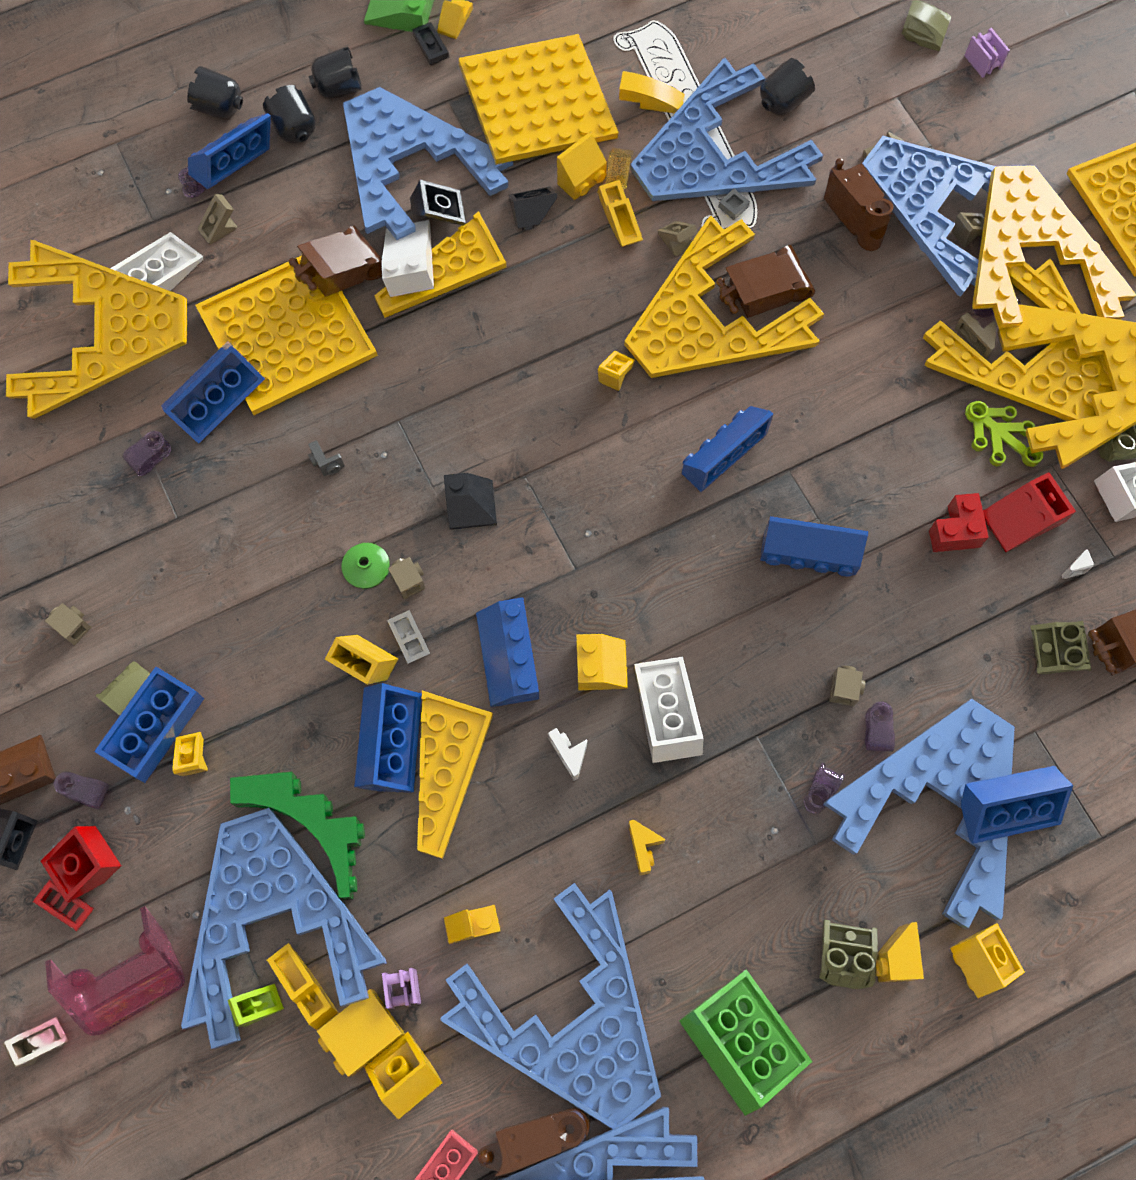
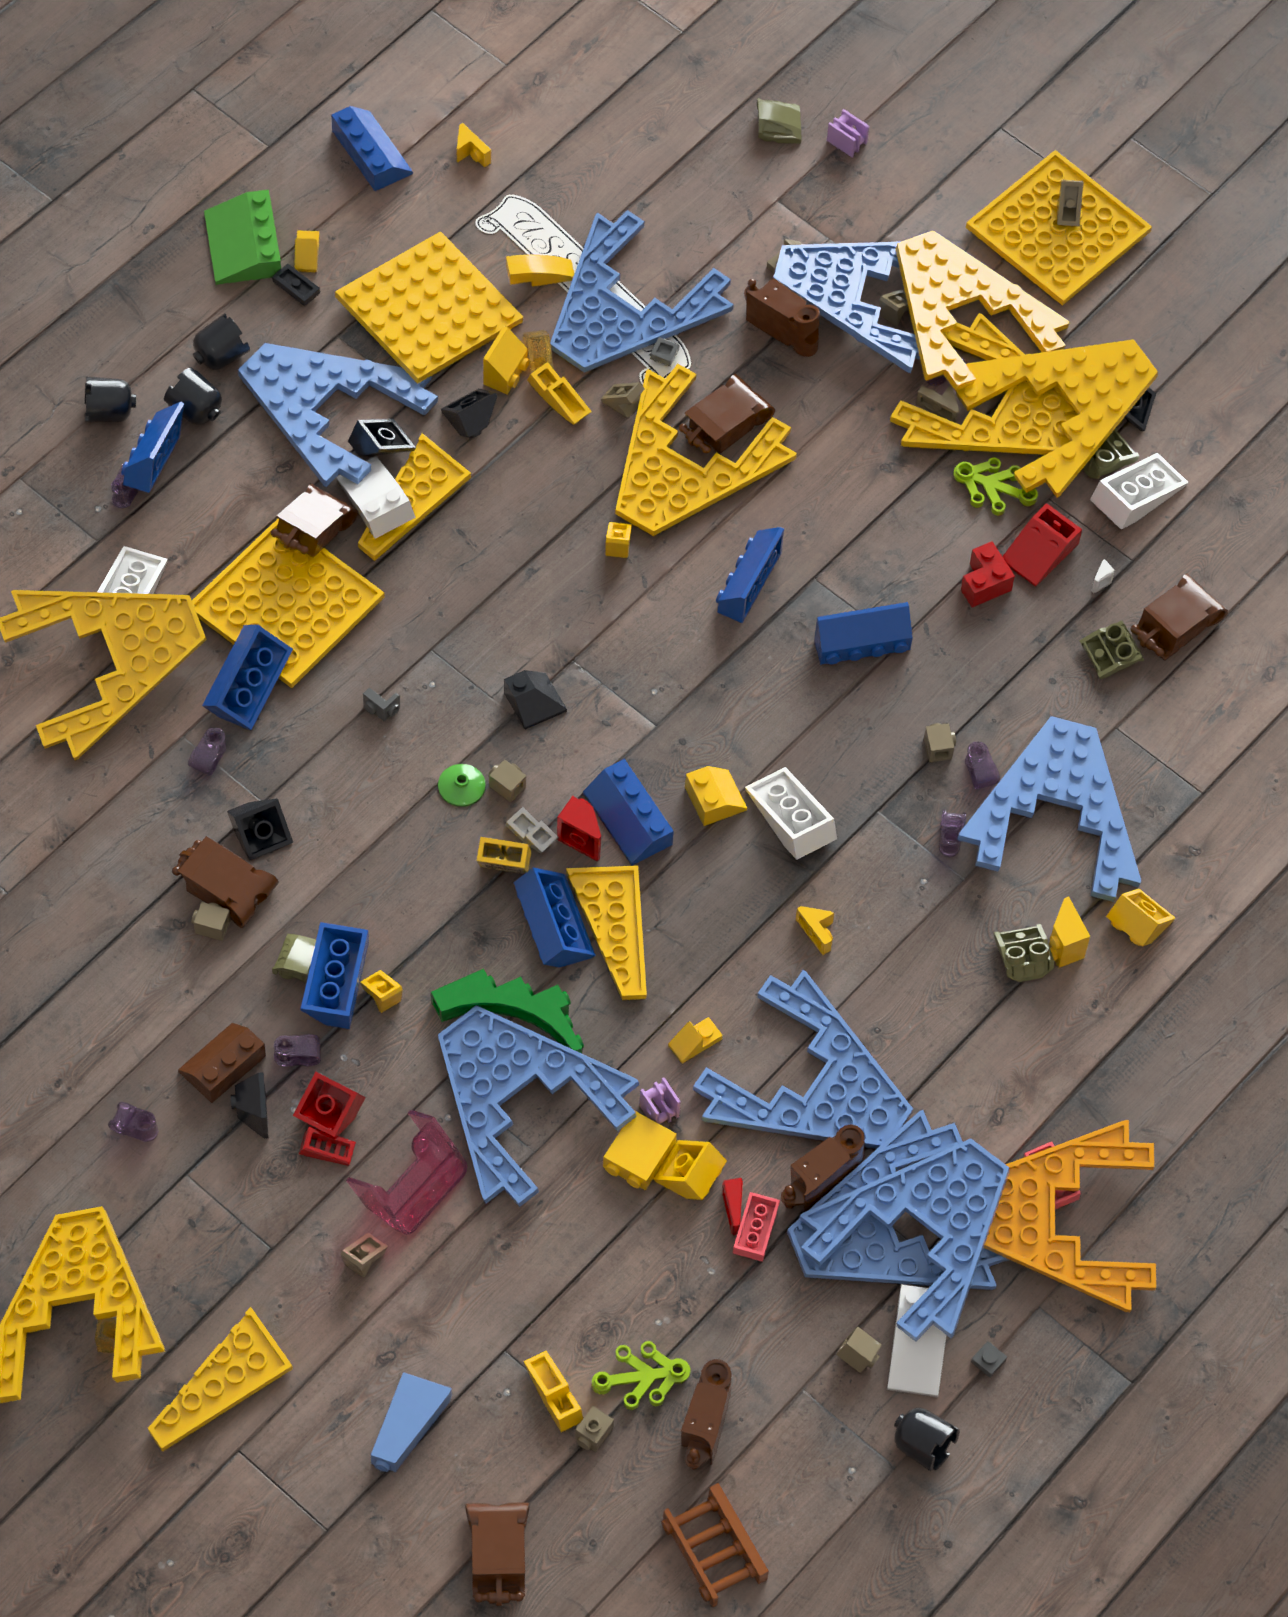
camera: 25 degrees left, 10 degrees down
(96, 587) = (224, 879): none -> reddish brown piece
(154, 544) = (260, 827): none -> black slope
(216, 220) = (167, 519): dark tan slope -> none
(255, 1005) = (538, 1162): lime slope -> none
(302, 987) = (572, 1134): yellow slope -> none
(432, 1126) = (732, 1200): none -> red slope
(450, 651) = (579, 828): none -> red slope
(572, 757) = (721, 879): white slope -> none
(746, 1042) = (964, 1046): bright green slope -> none
(786, 87) = (670, 225): black cylinder -> none
(1015, 803) = (1117, 785): blue slope -> none

